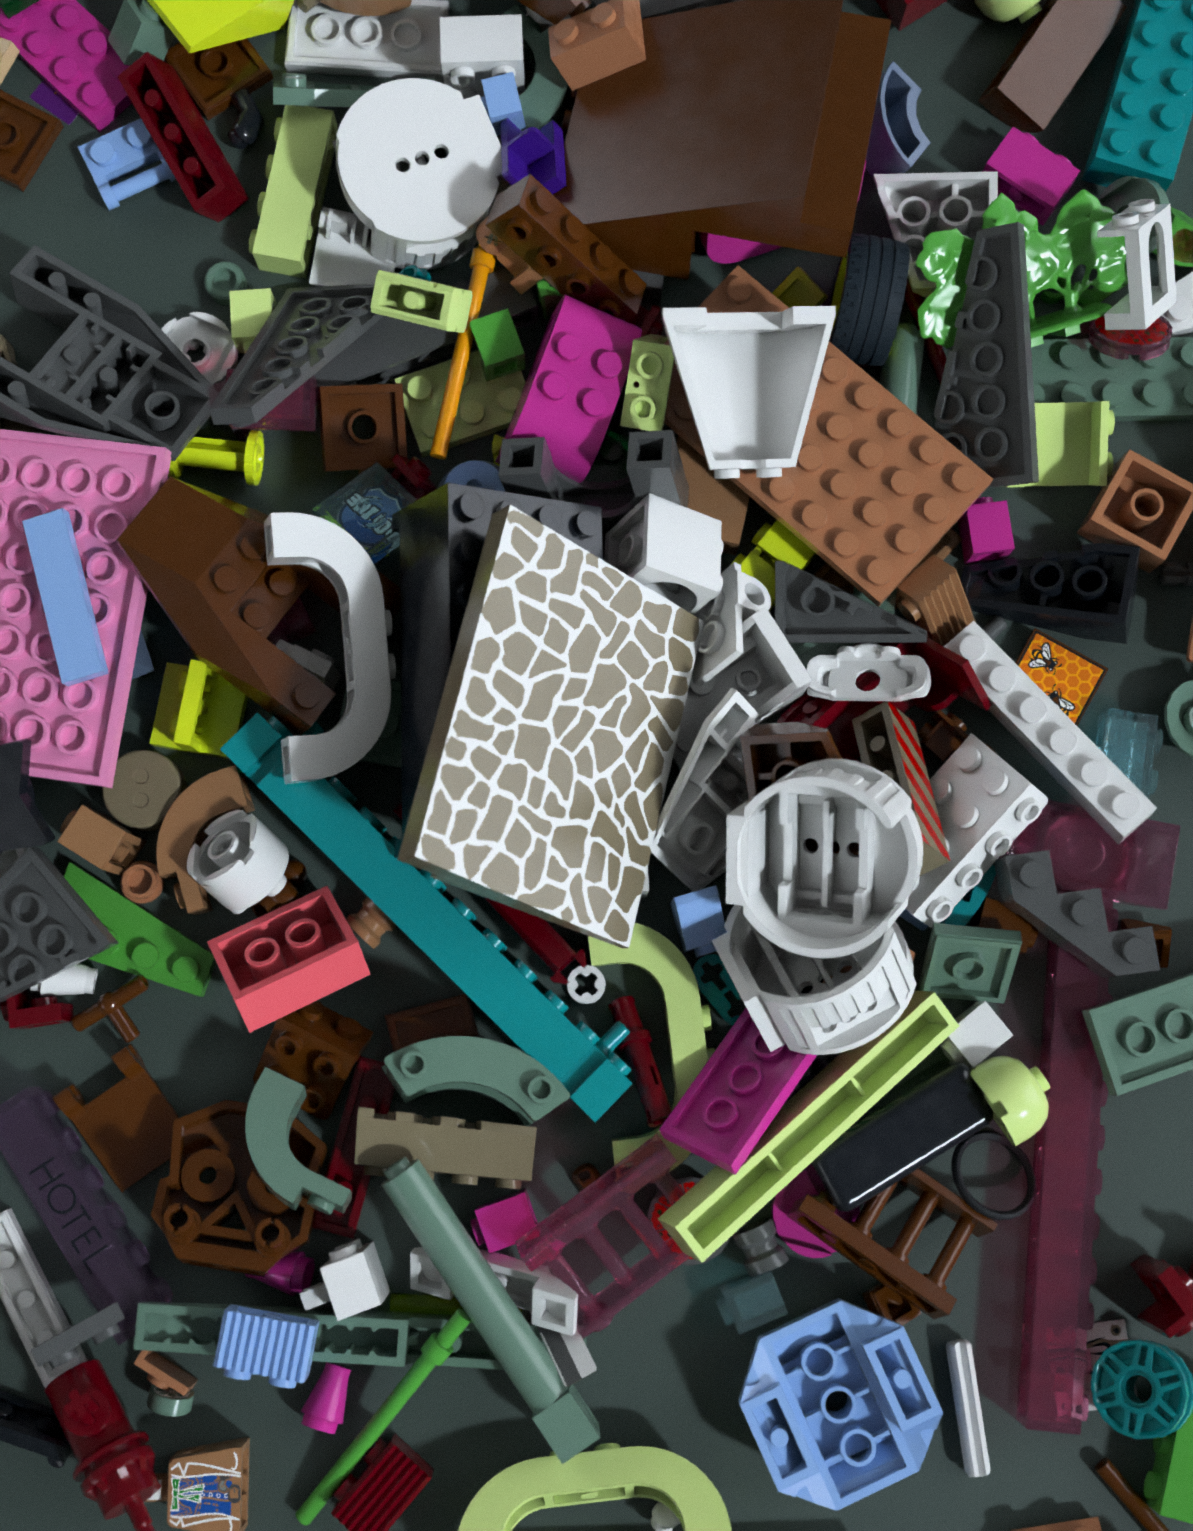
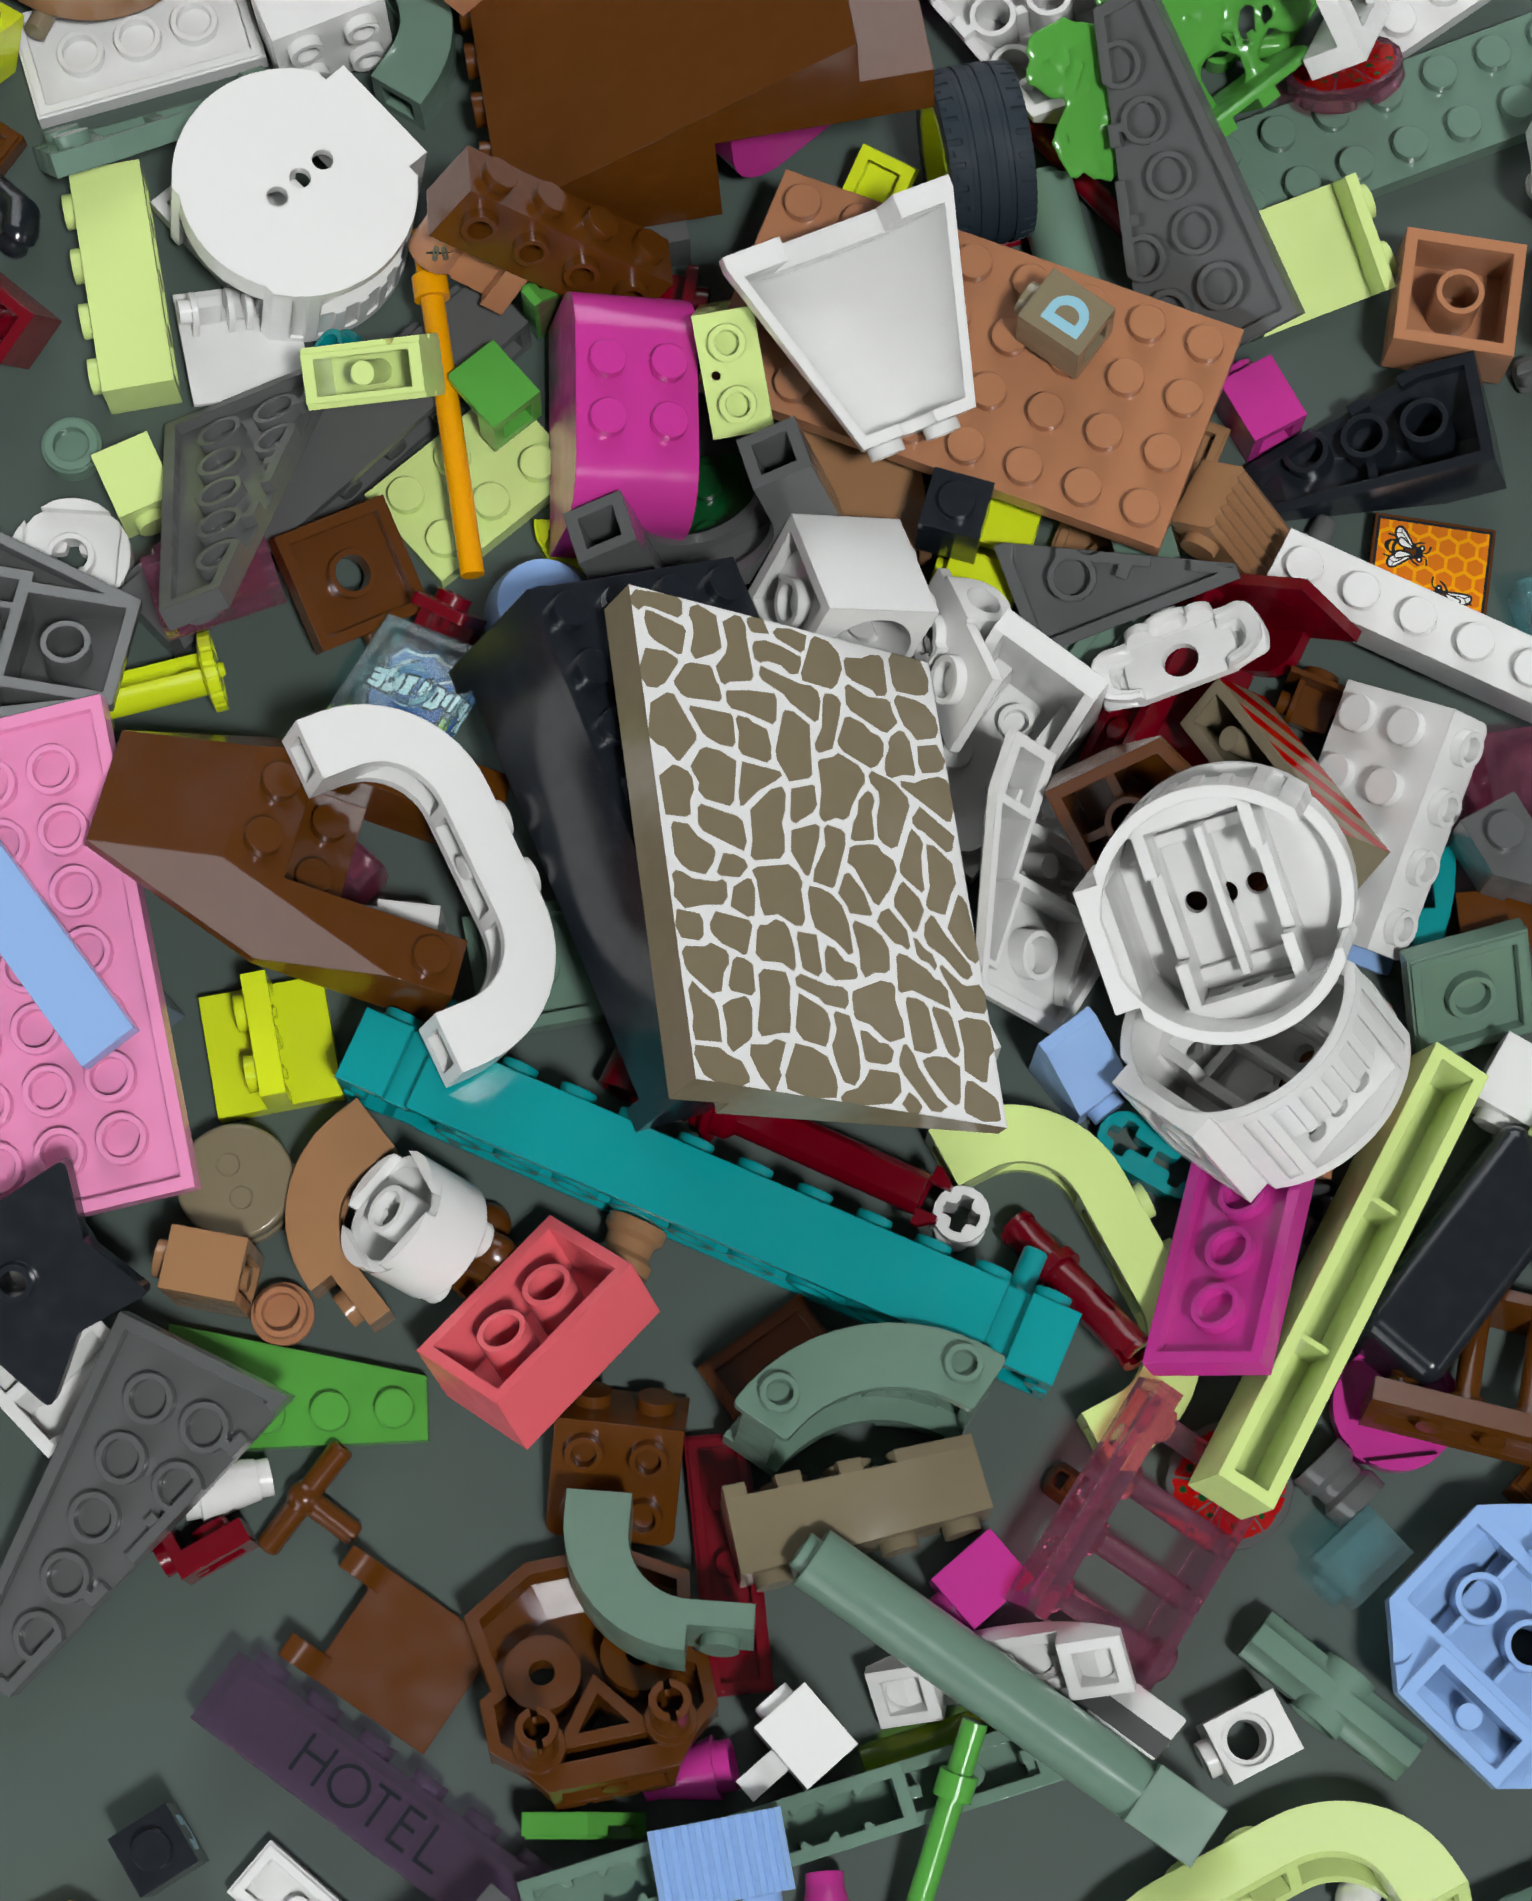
camera: 20 degrees left, 5 degrees down
(199, 1278) = (583, 1825): none -> bright green tile
(502, 101) = (378, 64): light blue plate -> none
(533, 153) = (448, 120): dark purple panel -> none
(654, 1396) = (1275, 1735): none -> white brick
(701, 1382) = (1332, 1696): none -> sand green piece
(757, 531) = (954, 515): none -> black brick
(875, 431) = (1063, 322): none -> dark tan brick

